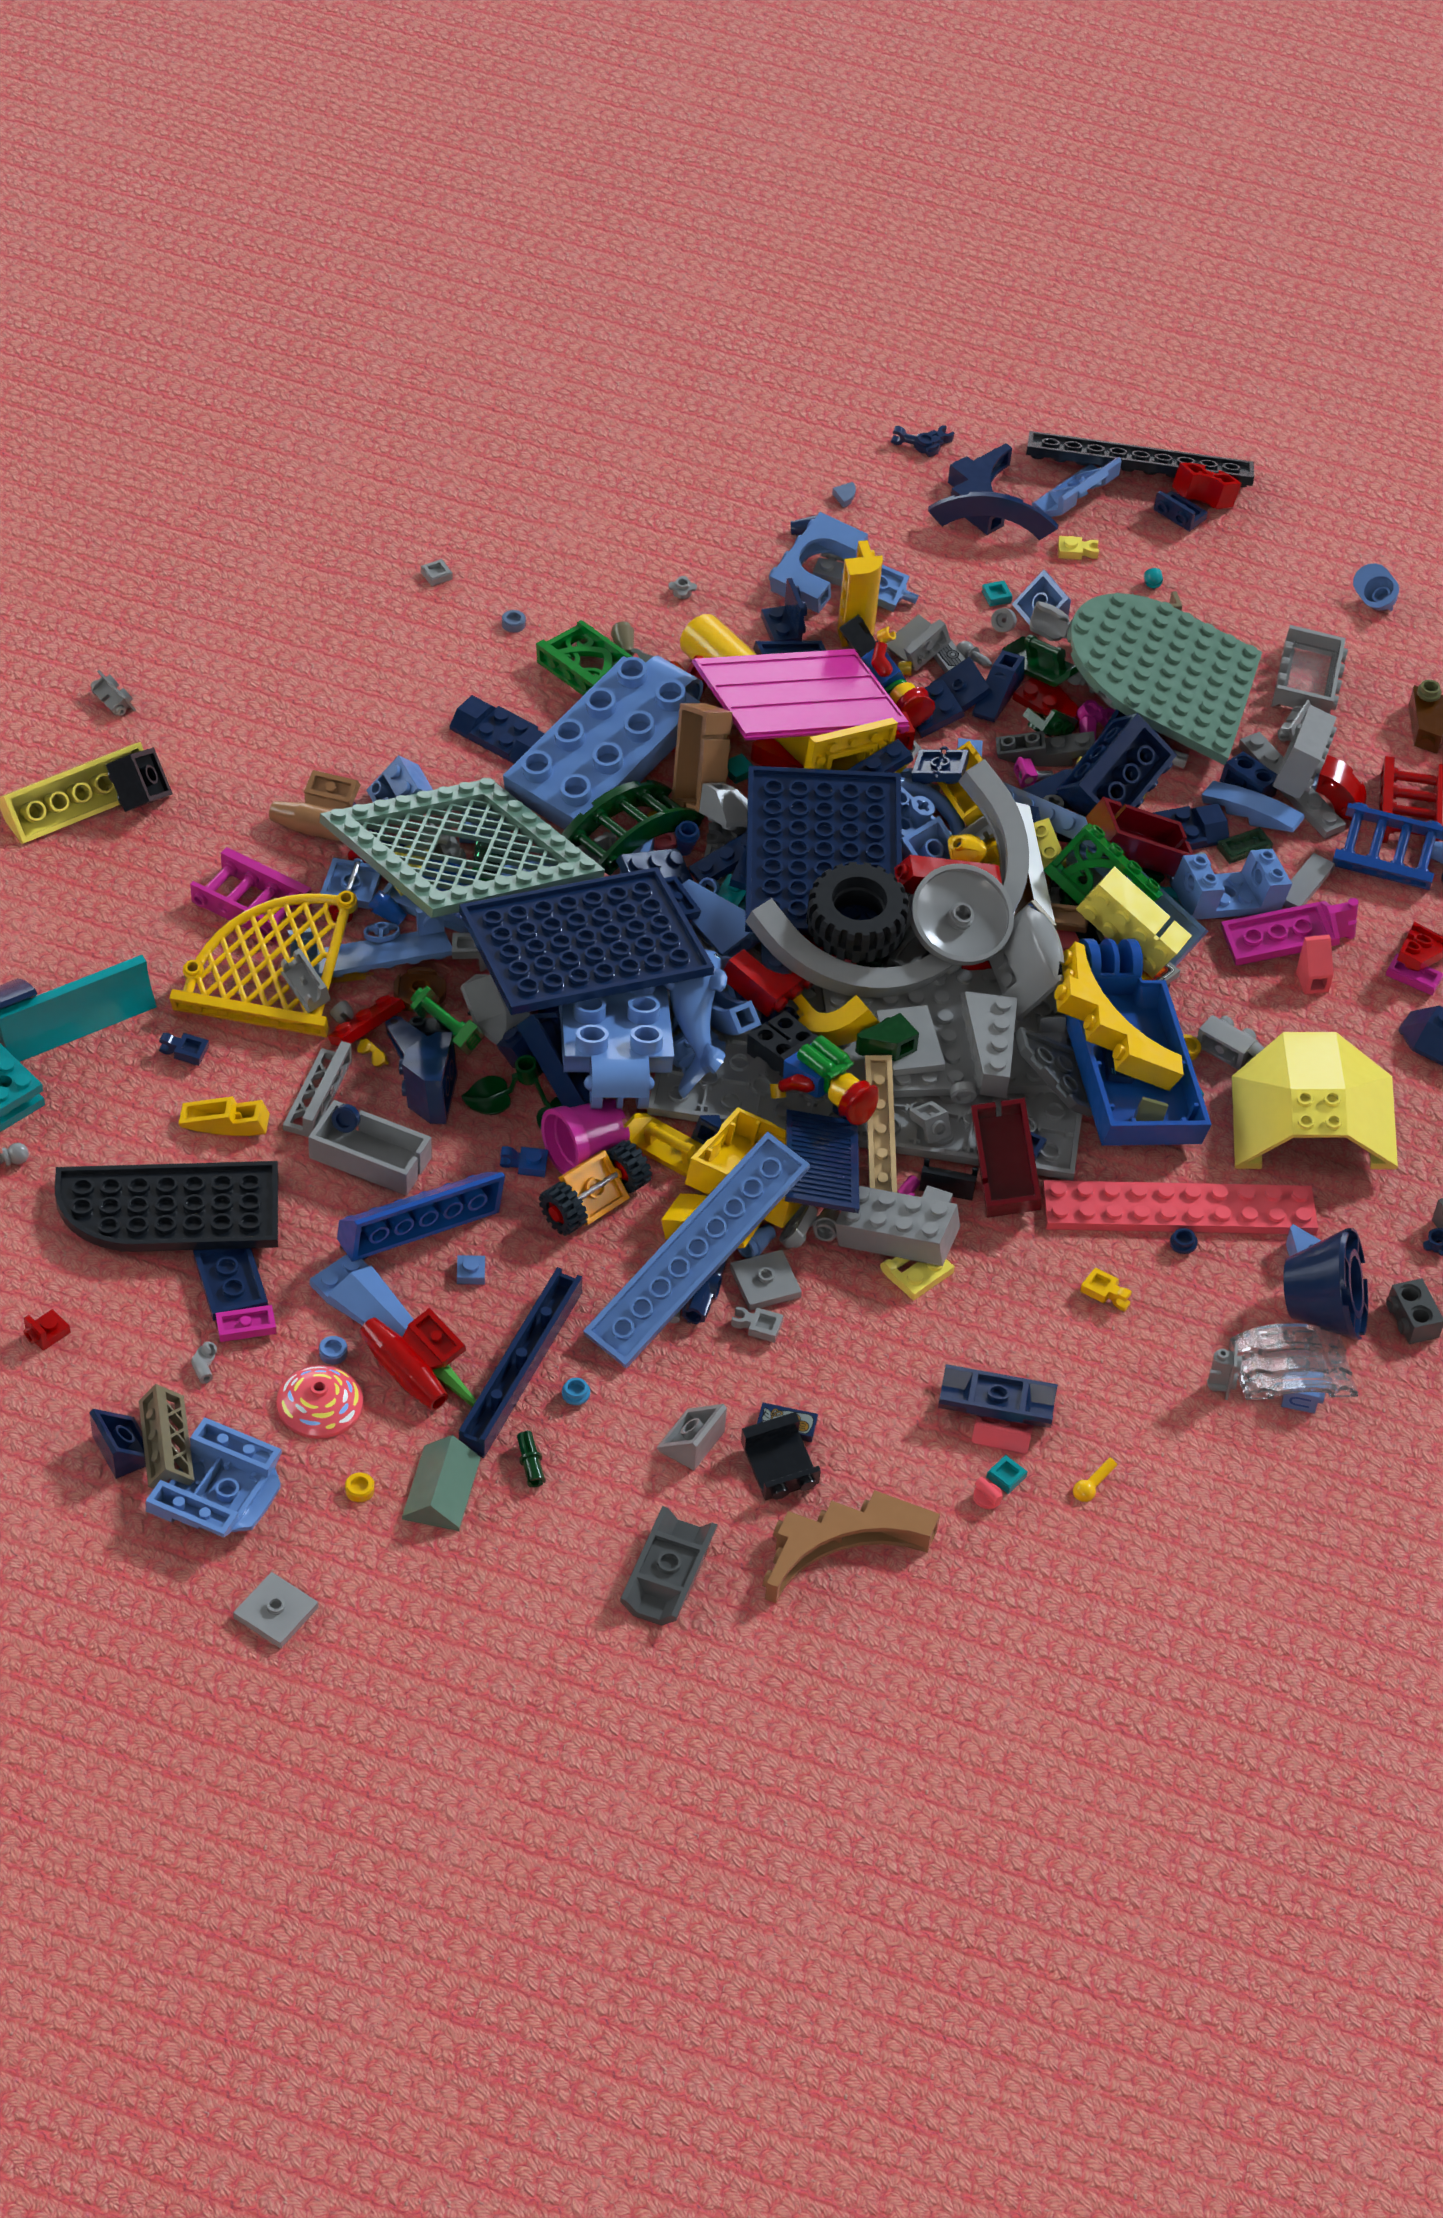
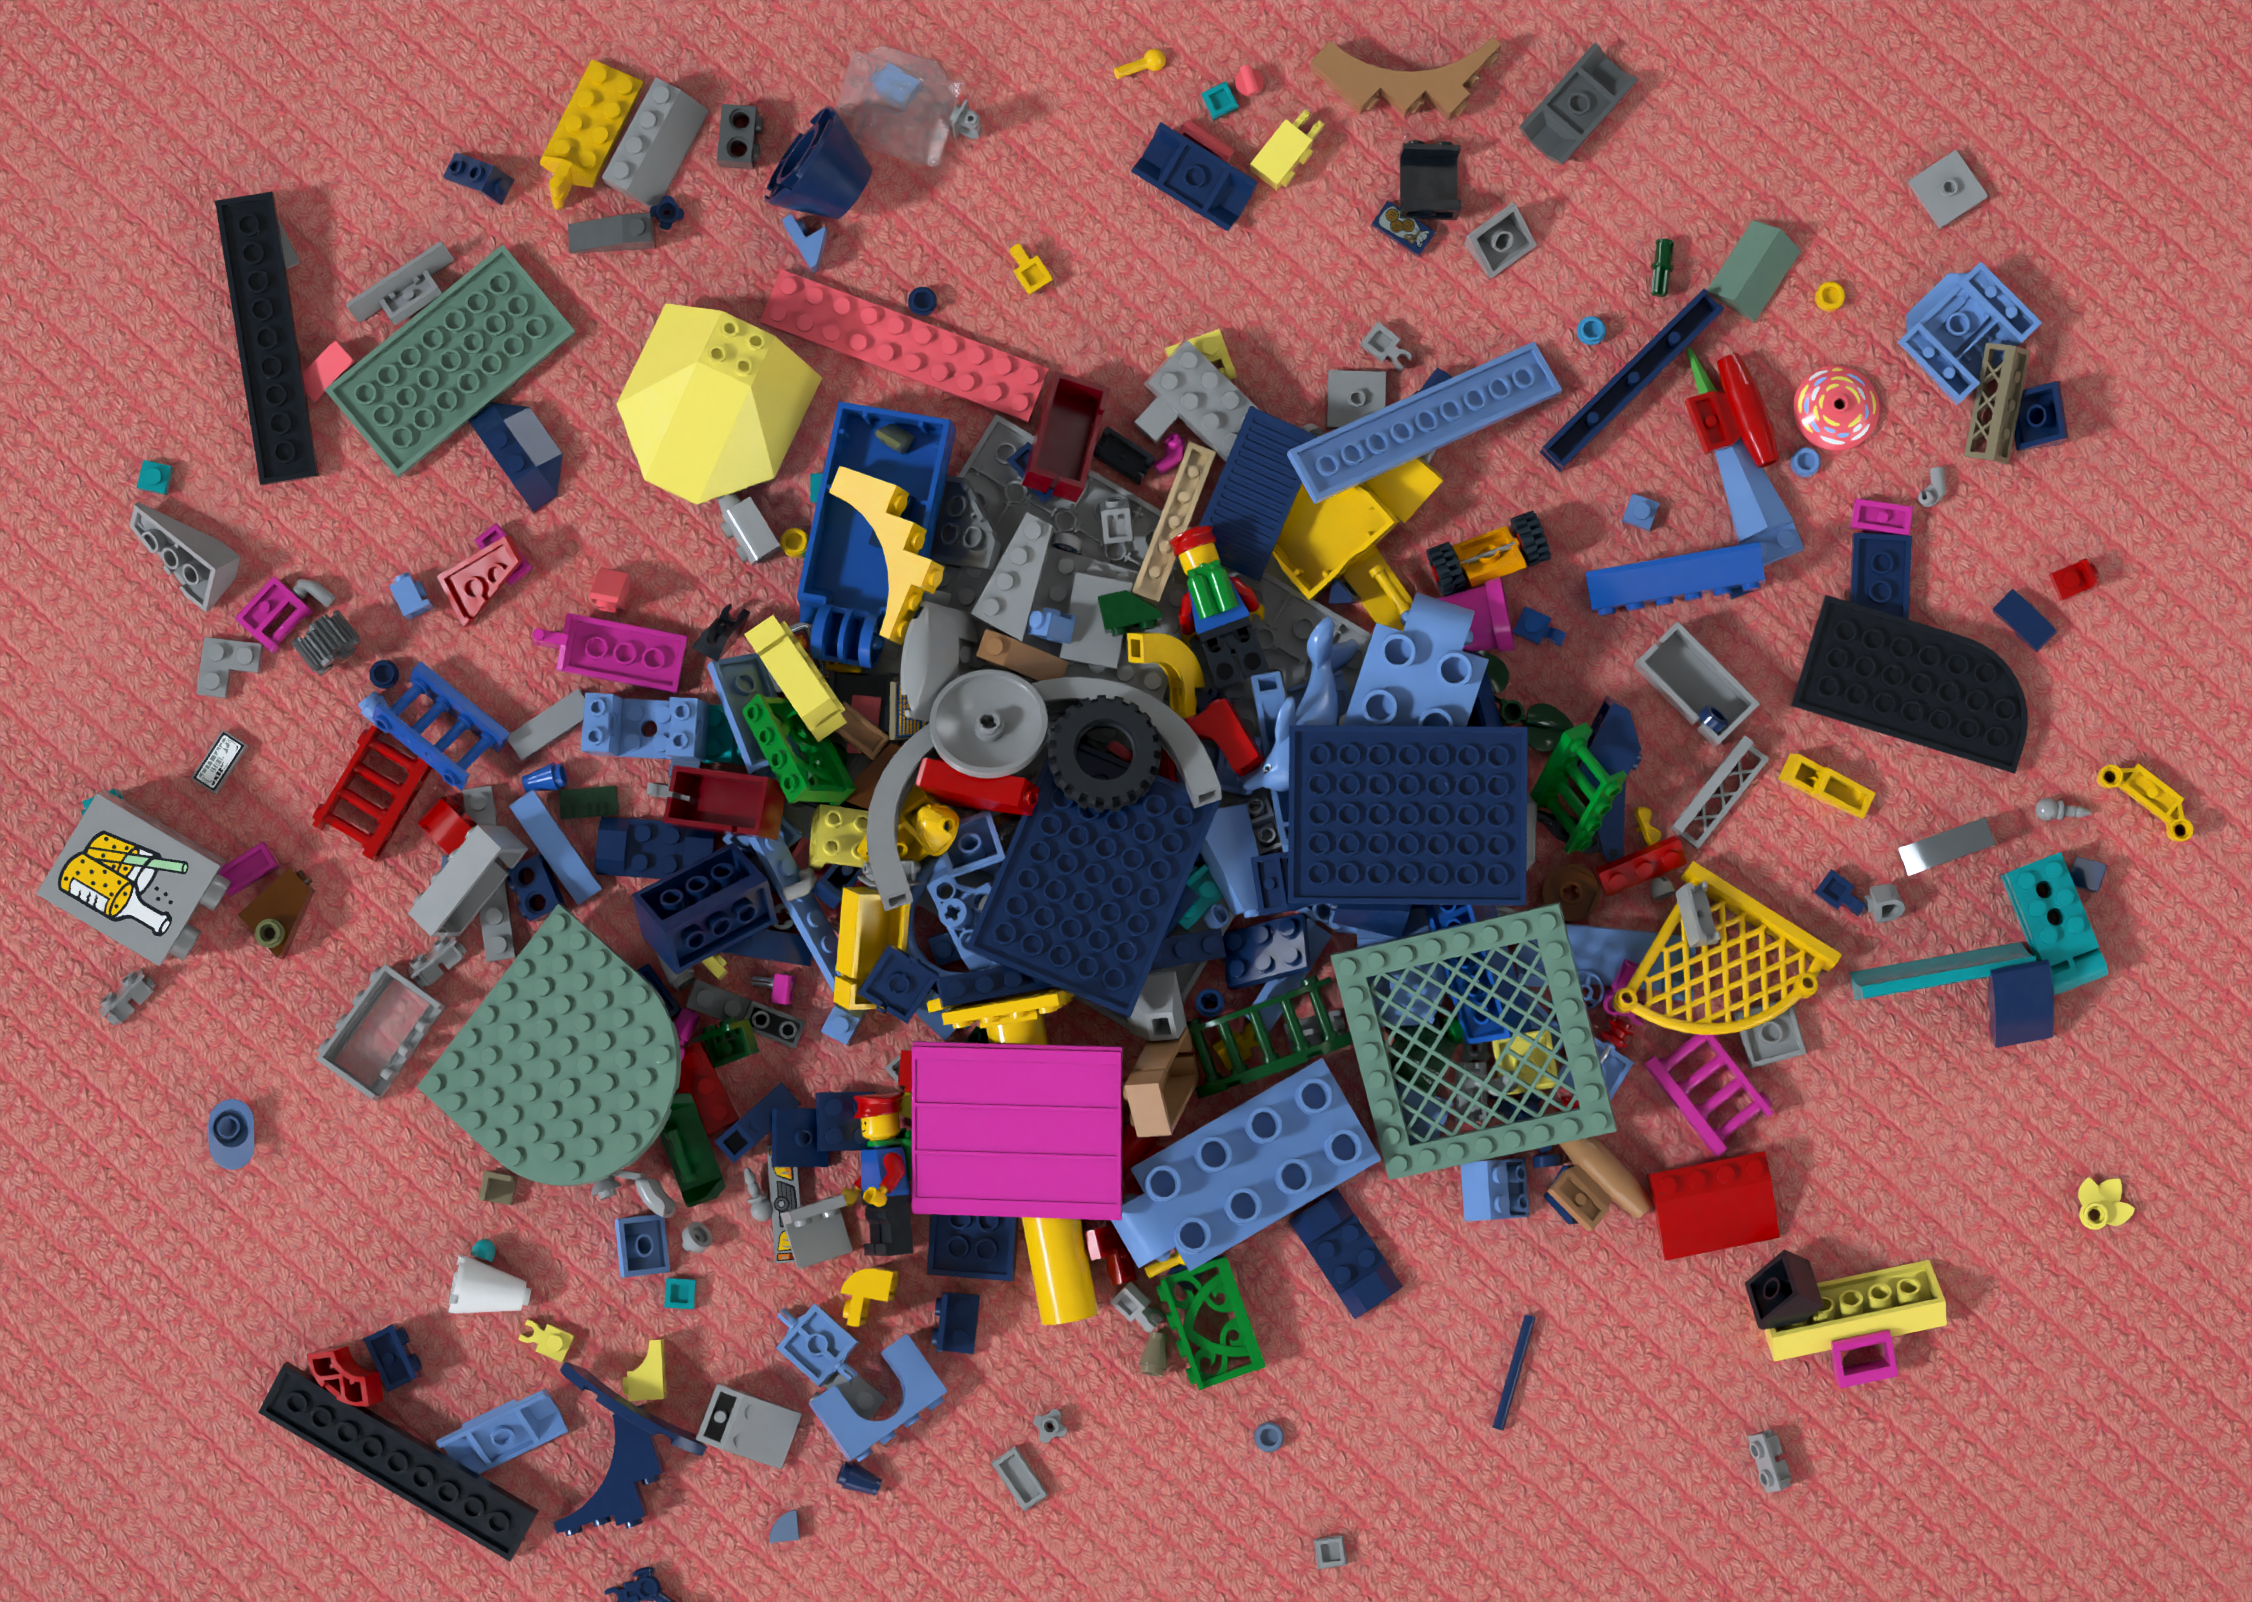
camera: 150 degrees left, 35 degrees up
(56, 758) = (1867, 1371): none -> dark pink tile
(81, 1281) = (2024, 620): none -> dark blue slope
(99, 1103) = (1946, 846): none -> dark grey slope
(144, 1049) = (1884, 903): none -> light grey plate
(195, 938) = (1772, 1040): none -> light grey plate
(232, 822) = (1714, 1205): none -> red slope
(338, 699) = (1514, 1372): none -> dark blue bar
(351, 937) = (1620, 981): none -> dark pink bar
(690, 557) = (1019, 1478): none -> light grey tile
(906, 530) = (748, 1426): none -> light grey slope
(926, 1444) = (1285, 151): none -> light yellow hinge
(946, 1015) = (1051, 625): none -> medium blue brick
(949, 993) = (1019, 658): none -> medium nougat slope
(991, 541) = (649, 1379): none -> light yellow arch
(1035, 871) = (860, 803): white sticker -> none
(1048, 807) = (802, 888): none -> light grey arm
(1139, 552) = (485, 1289): none -> white cone
(1210, 958) = (721, 634): none -> black hinge
(1287, 846) = (548, 778): none -> blue cone

